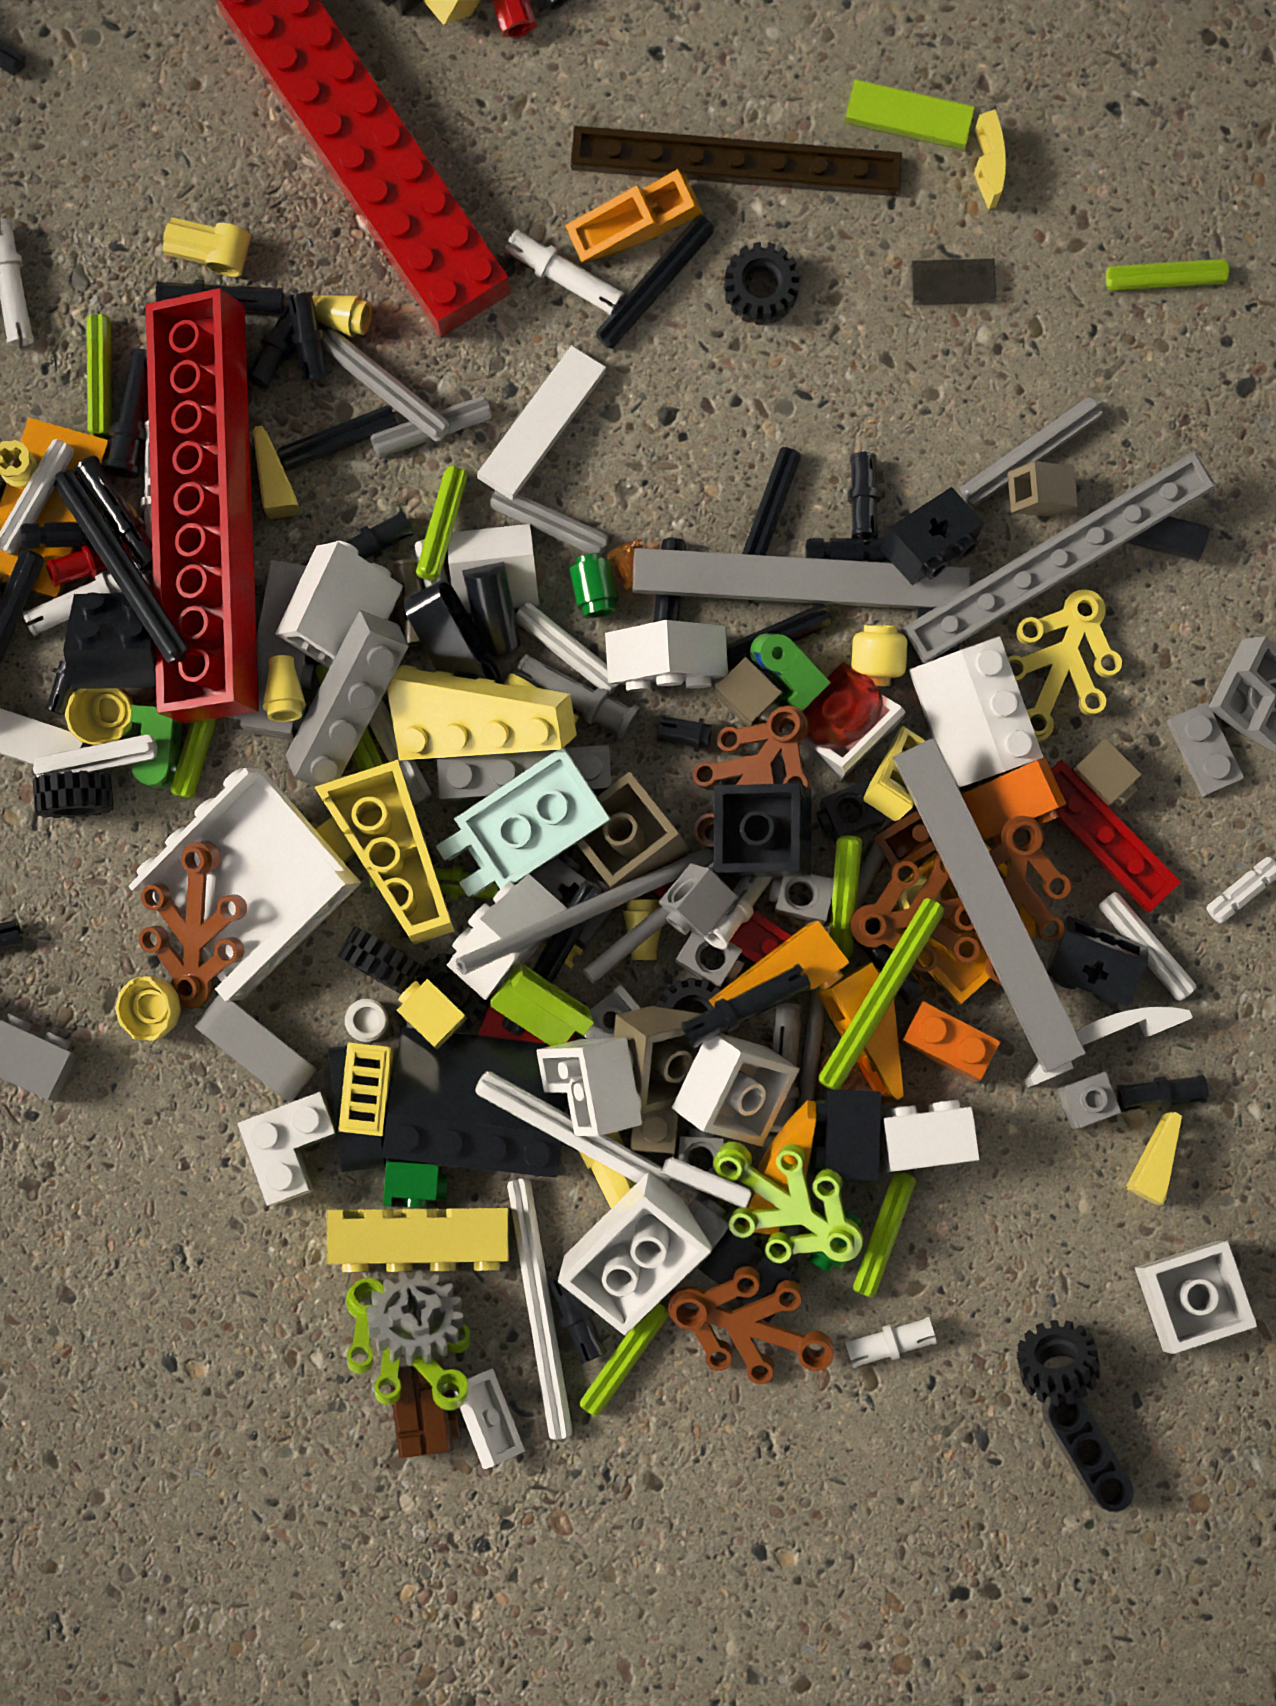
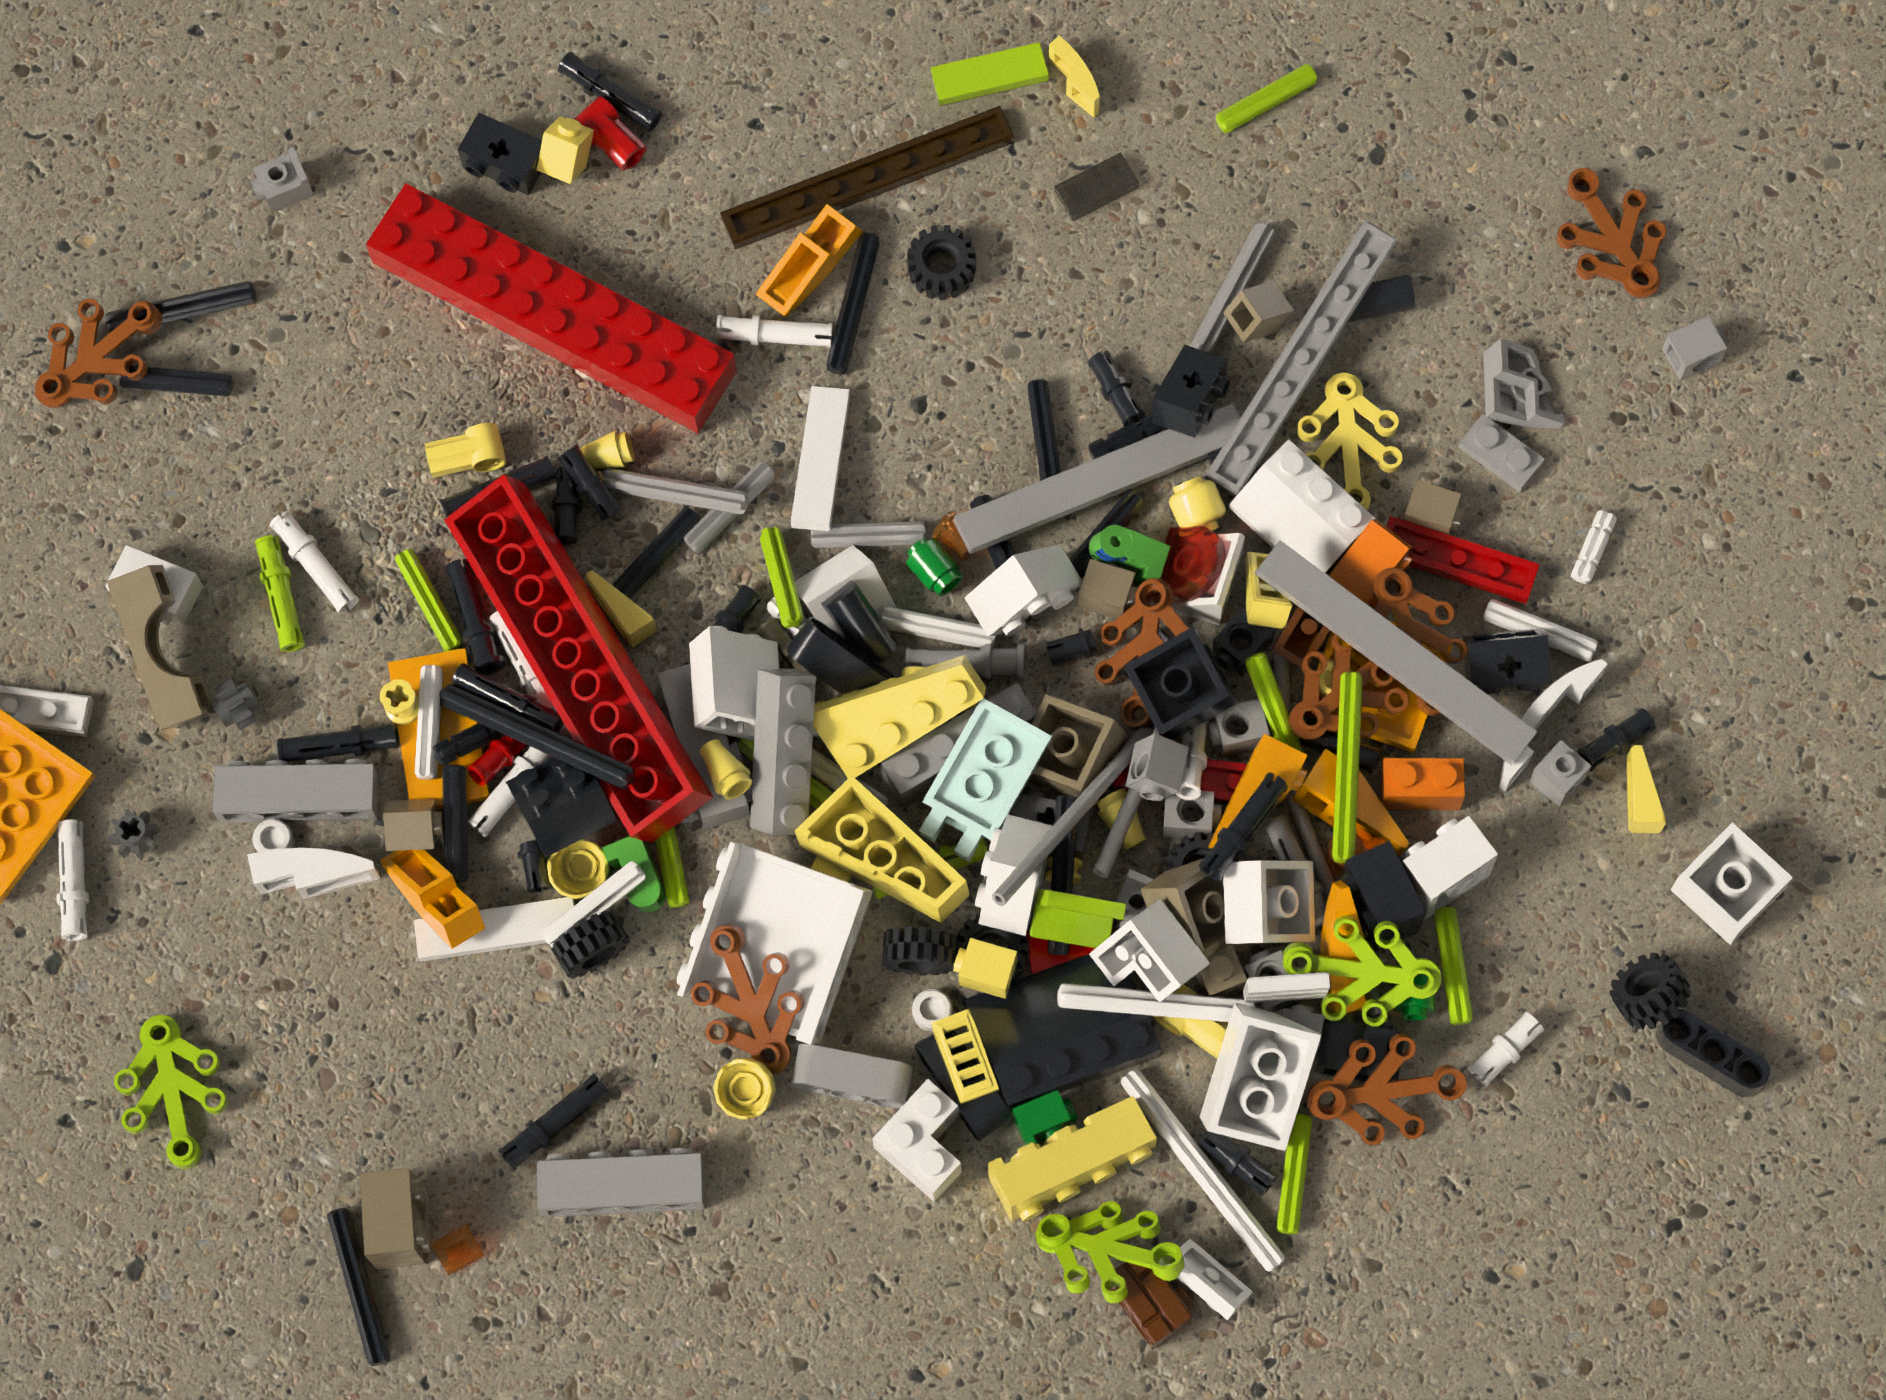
camera: 20 degrees left, 10 degrees down
(398, 1327) = (1105, 1220): light grey gear -> none

